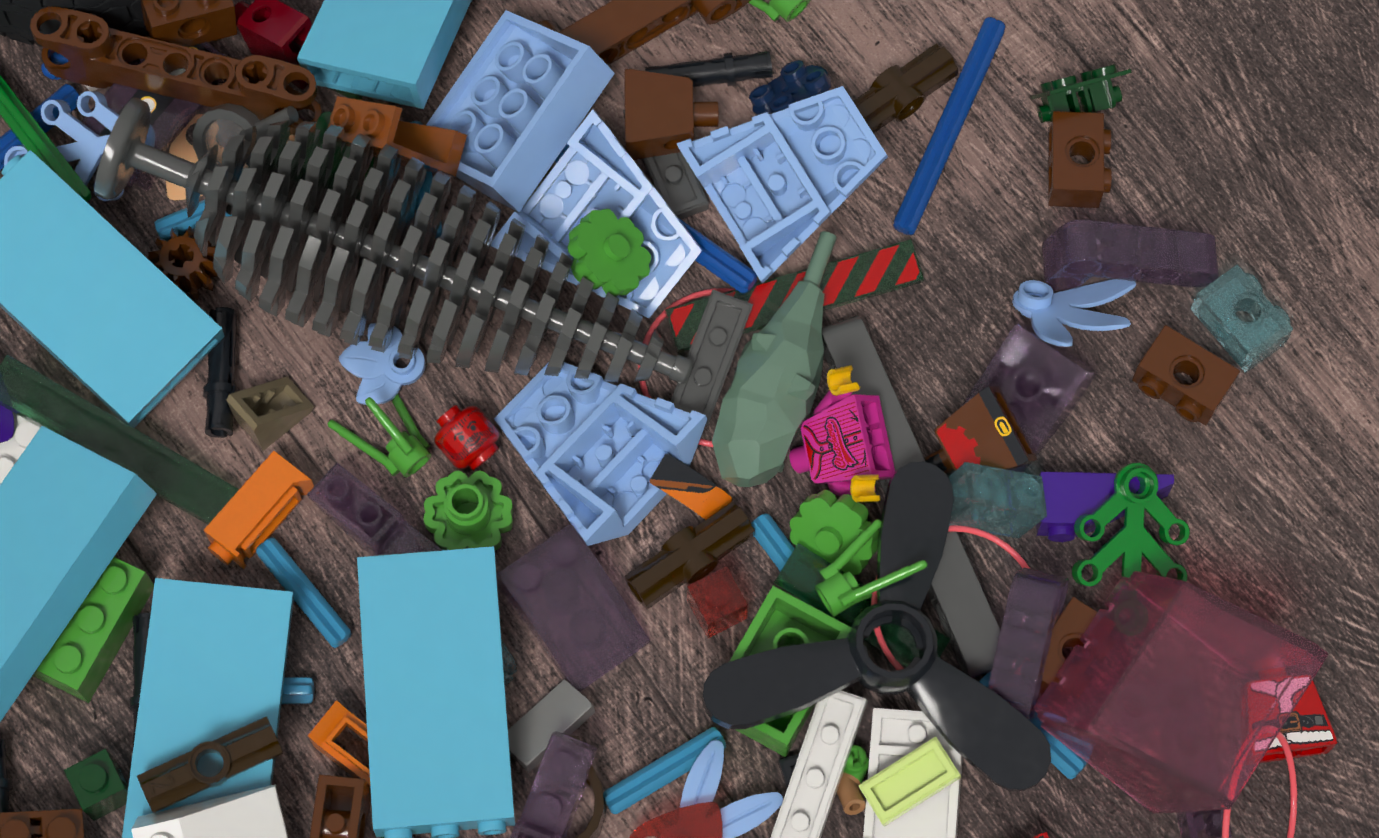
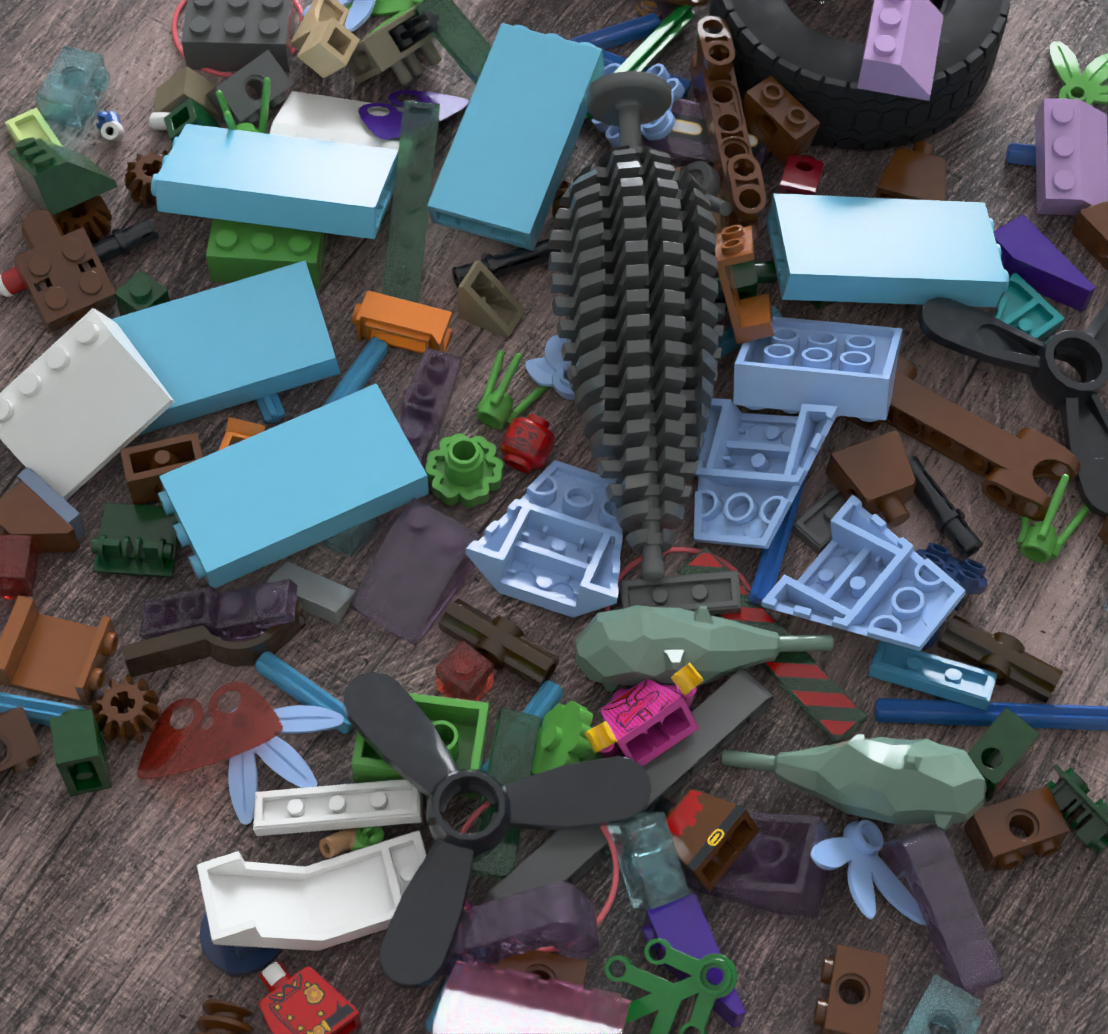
camera: 65 degrees right, 10 degrees down
(180, 777) = (186, 364): dark brown piece -> none
(608, 252) = (722, 470): bright green plant -> none
(689, 487) = (558, 620): sticker -> none
(843, 591) = (505, 759): bright green plant -> none
(905, 147) = (933, 675): none -> dark azure tile
(909, 781) = (362, 881): yellowish green tile -> none
(992, 255) = (880, 778): none -> sand green piece
(1005, 144) = (1004, 749): none -> dark green torso

